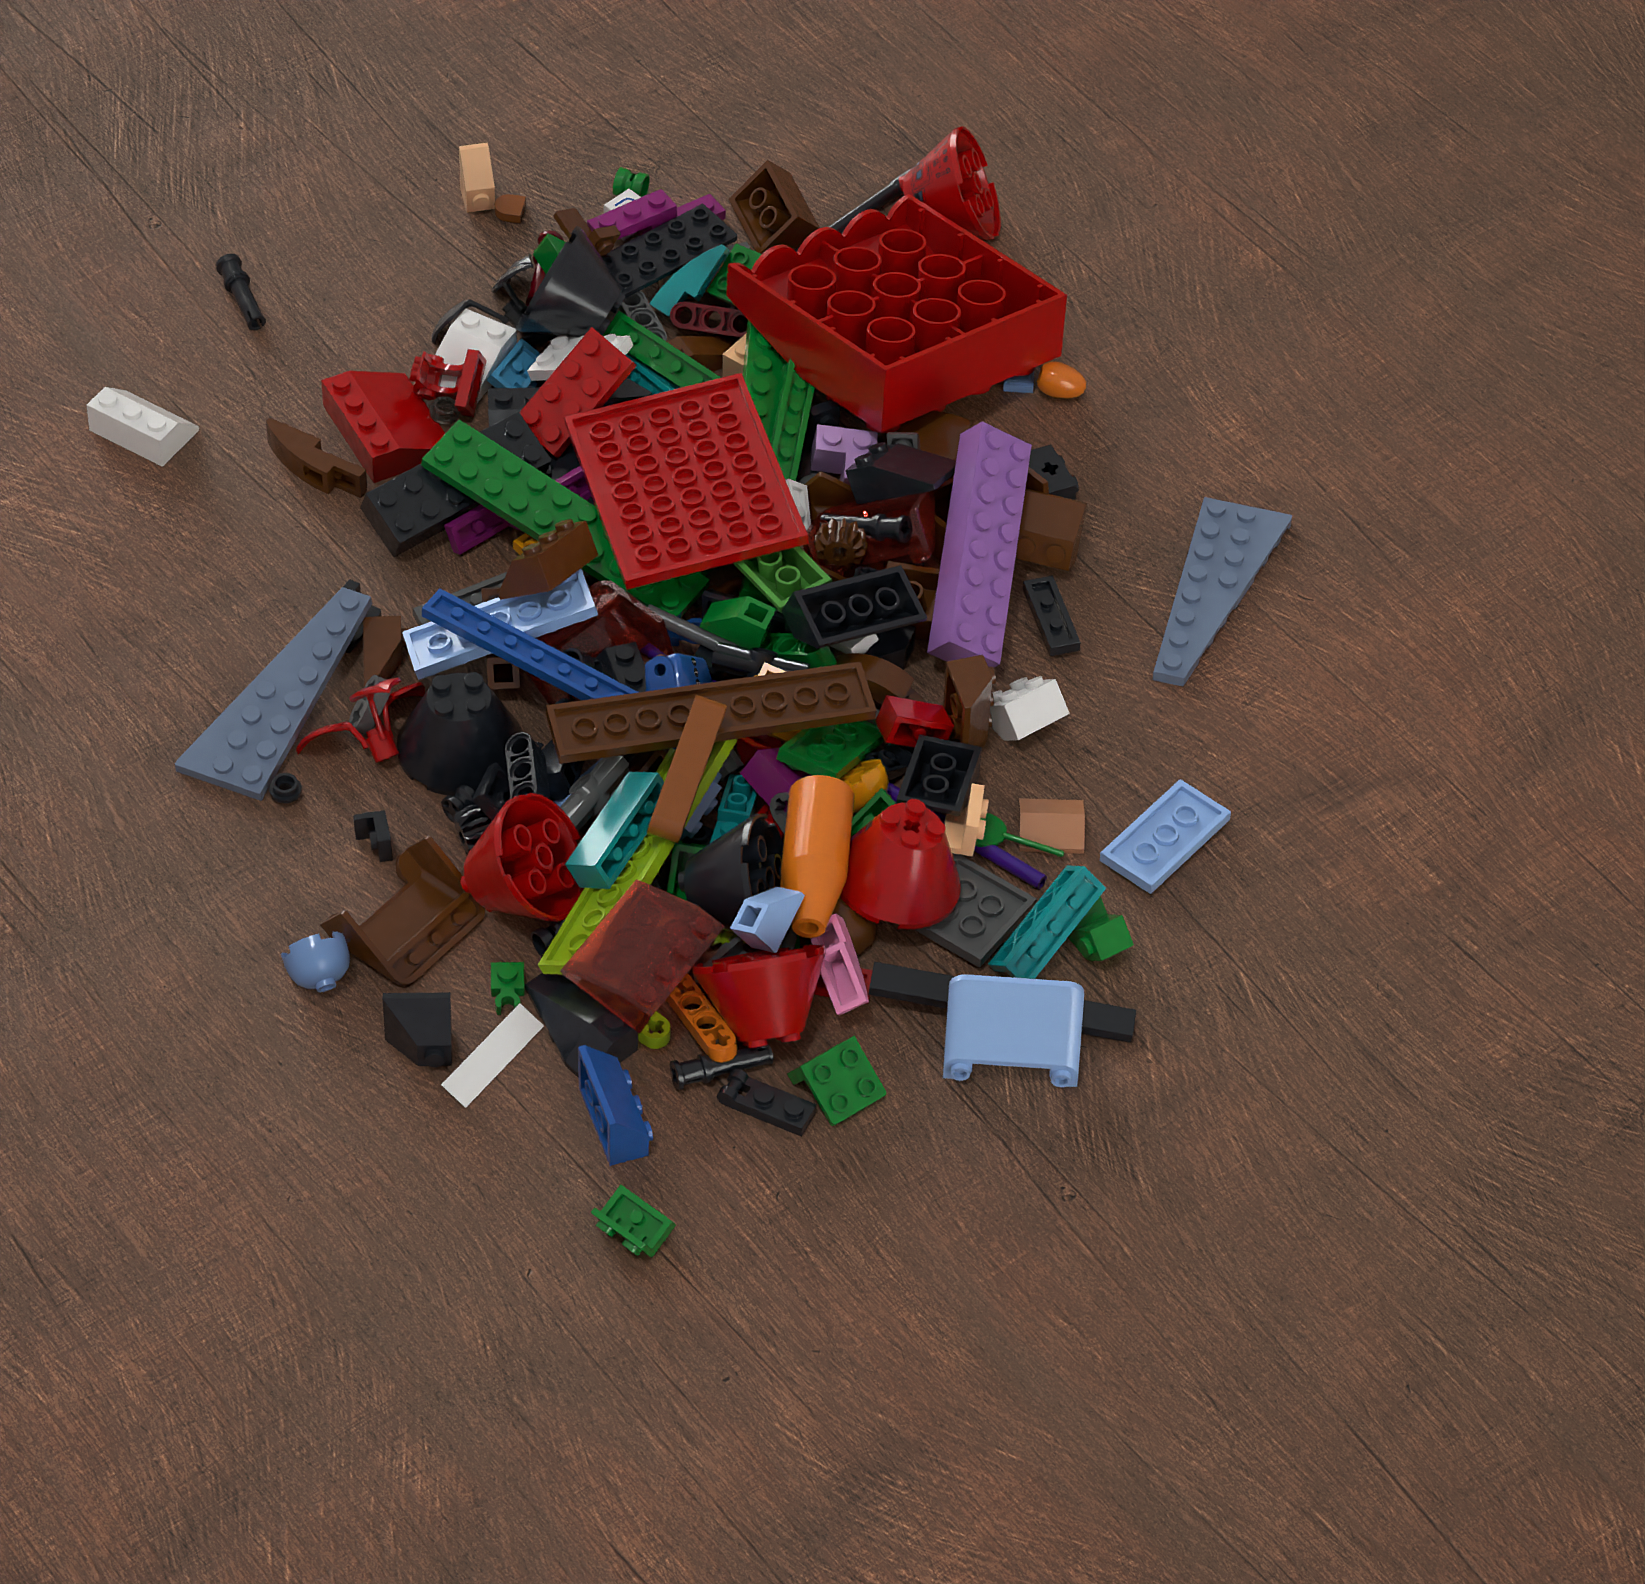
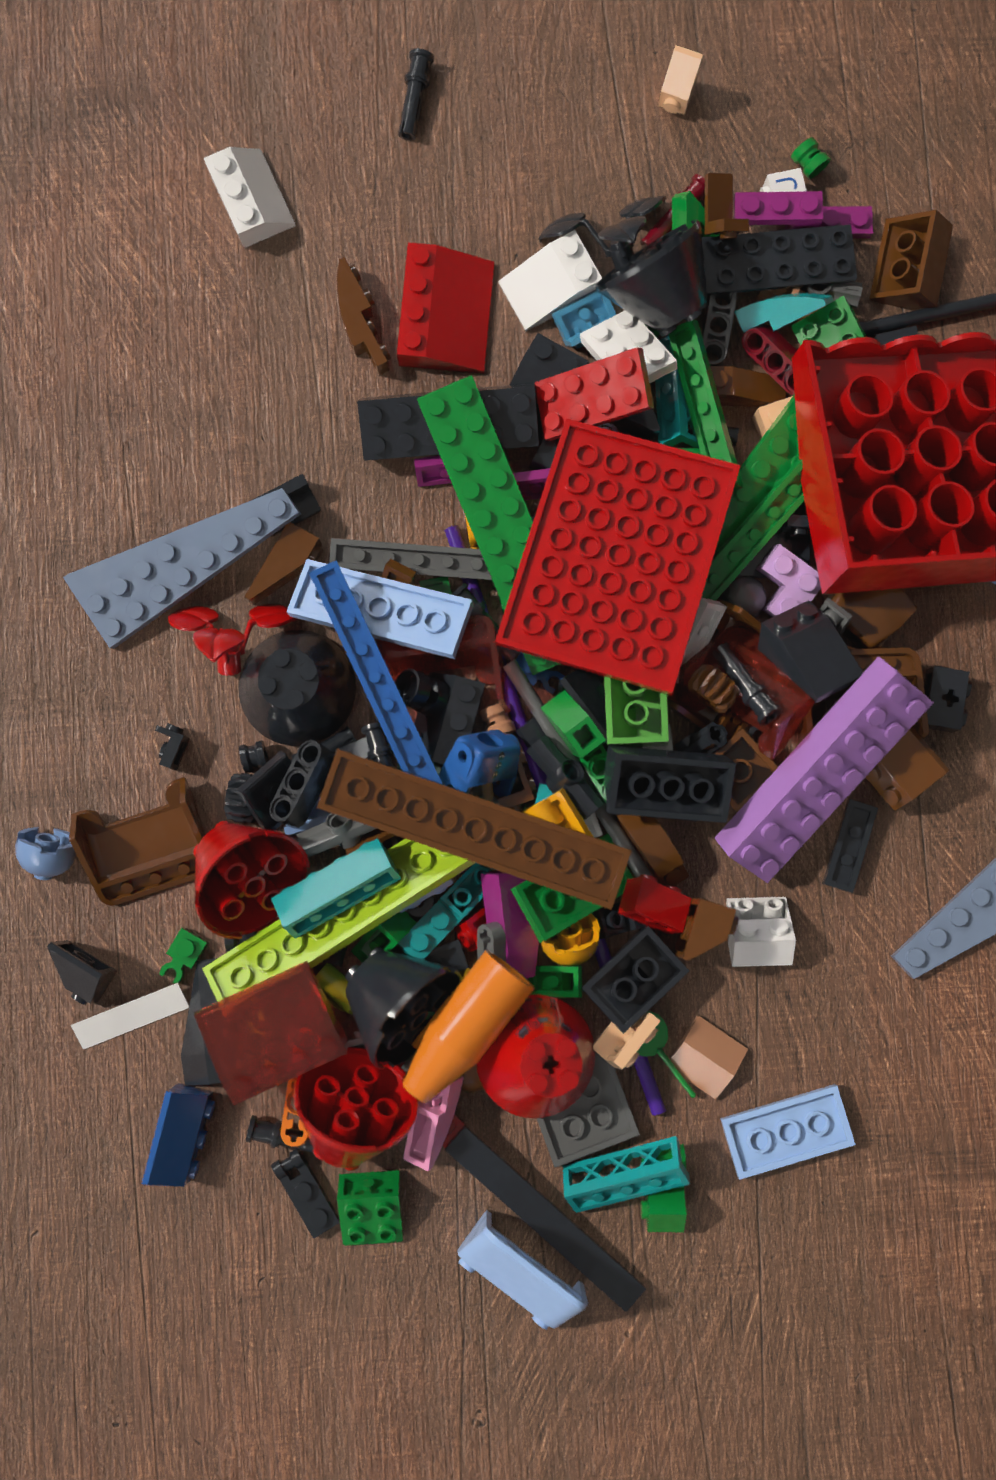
camera: 35 degrees right, 35 degrees up
(285, 788) = (127, 647): black plate -> none
(361, 715) = (241, 614): dark grey beam -> none
(428, 372) = (502, 284): red tile -> none
(444, 411) = (504, 319): clear smoke plate -> none
(510, 207) = (695, 123): dark orange tile -> none
(549, 560) = (448, 584): reddish brown slope -> none
(635, 1221) = (127, 1250): green bracket -> none
(687, 769) = (412, 884): dark orange beam -> none
(767, 917) = (379, 1077): light blue slope -> none

